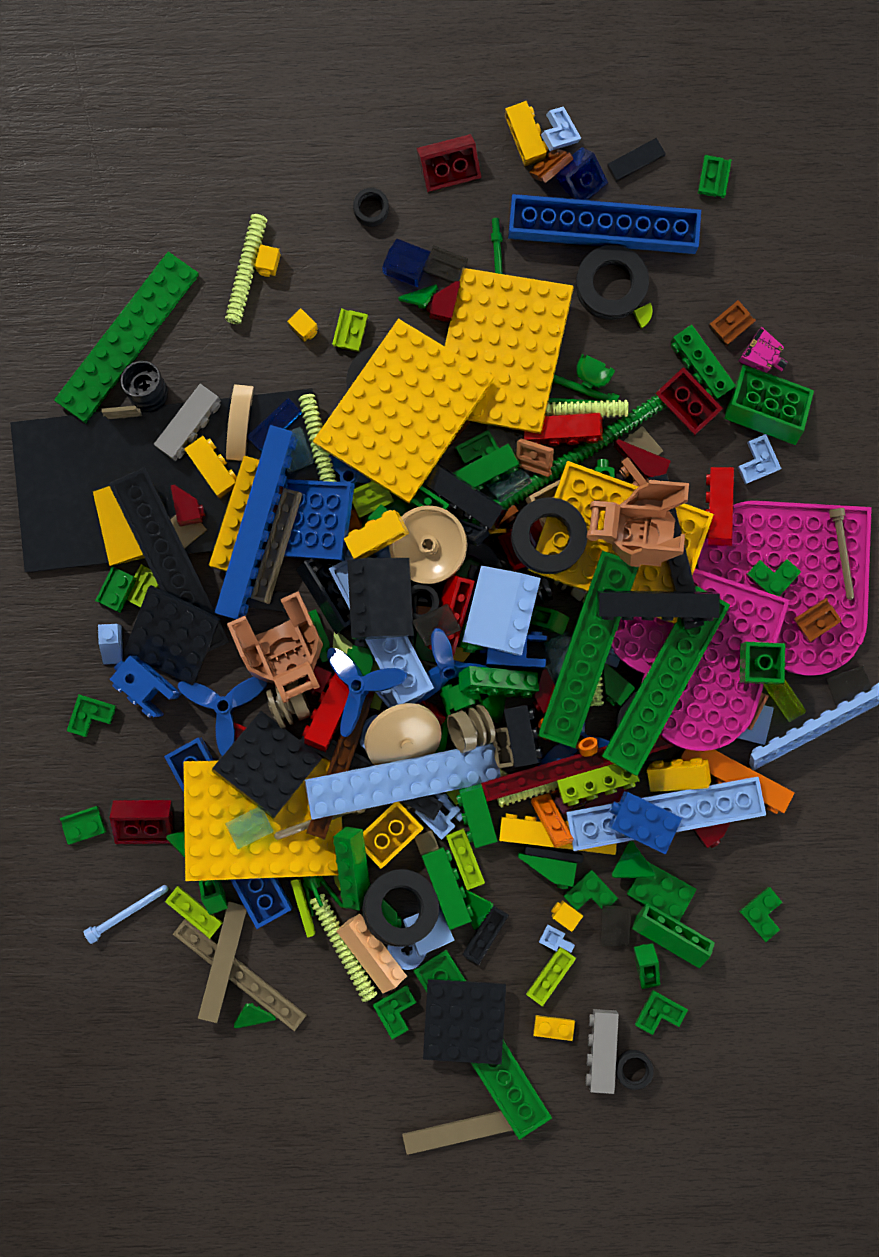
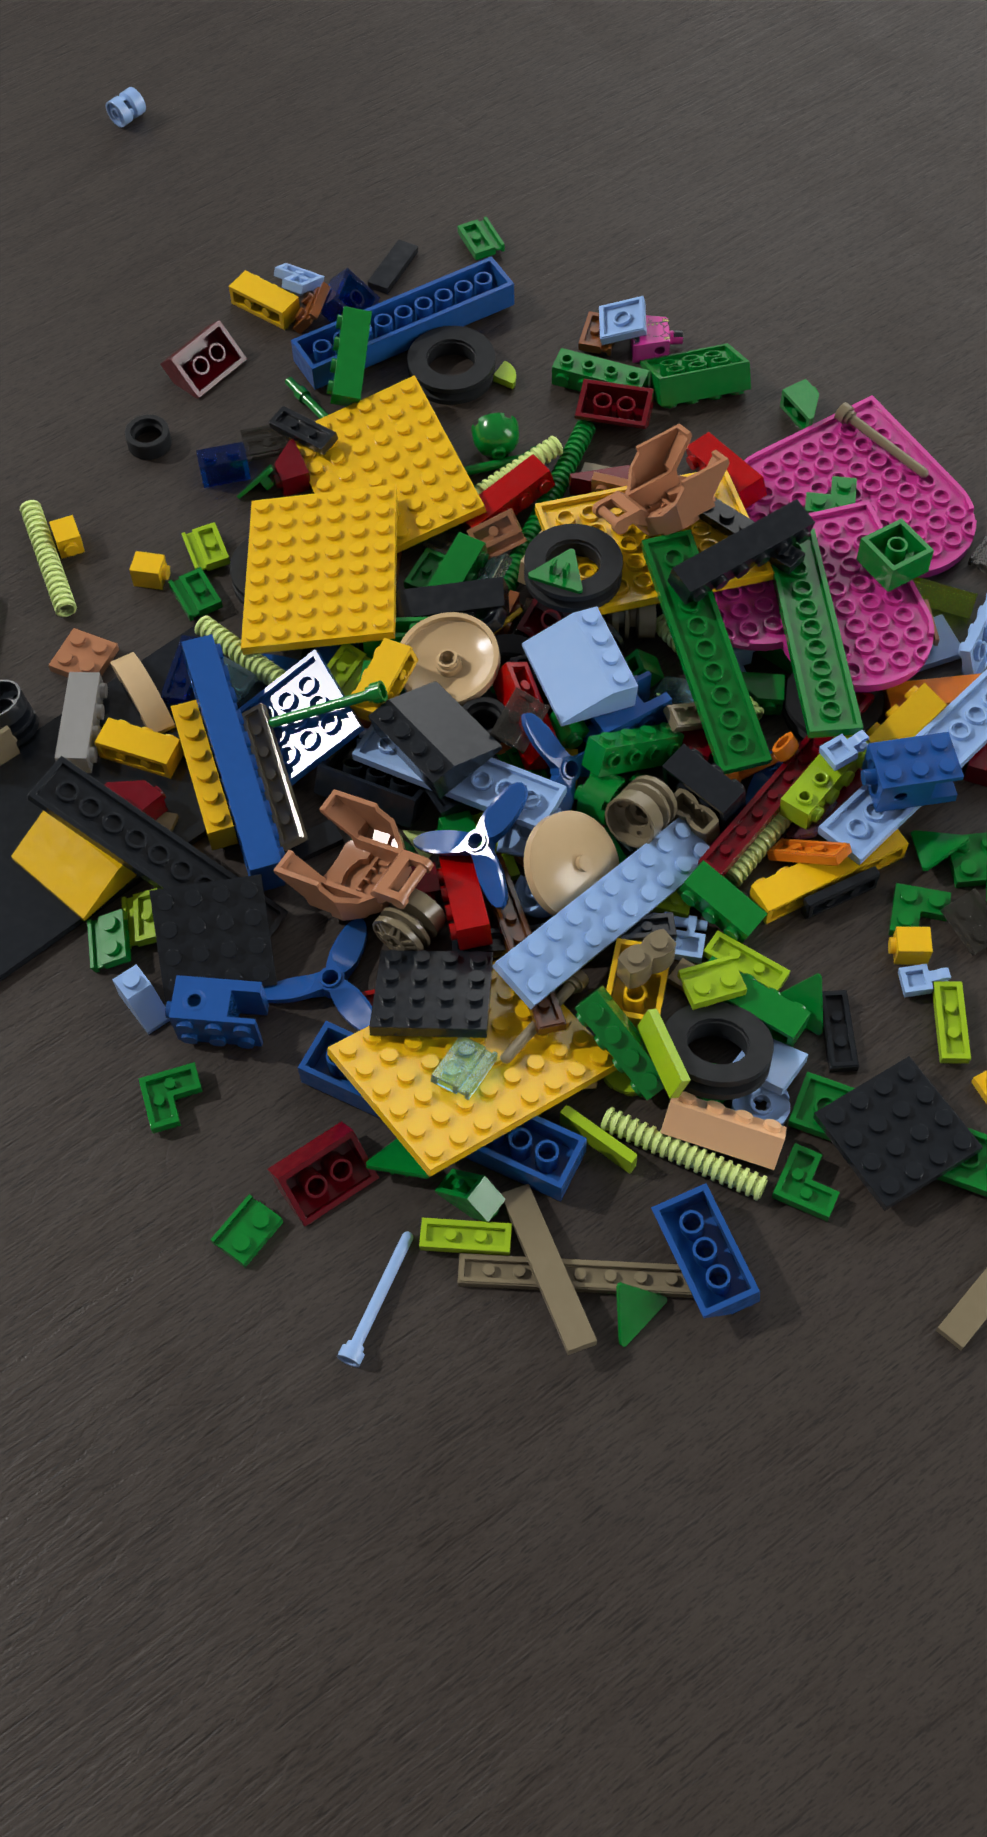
camera: 30 degrees left, 25 degrees down
(223, 365) = (83, 654): none -> nougat plate
(309, 1014) = (706, 1253): none -> blue slope
(313, 883) = (589, 1103): green plant -> none
(320, 364) = (195, 594): none -> green plate
(360, 549) = (375, 693): none -> green piece
(363, 896) = (663, 1053): none -> lime tile
(392, 830) = (650, 957): none -> dark tan brick
(428, 866) = (712, 982): none -> lime plate
(470, 279) = (303, 430): none -> black plate
(533, 539) = (560, 572): none -> green piece
(539, 242) = (350, 357): none -> green brick
(544, 680) = (683, 717): none -> dark tan plate
(555, 870) = (851, 909): green slope -> none
(612, 780) = (842, 751): none -> light blue plate
(750, 329) = (622, 320): none -> light blue tile
(763, 463) = (732, 421): light blue plate -> none
(817, 620) = (912, 506): dark orange plate -> none
(819, 480) = (800, 403): none -> green slope

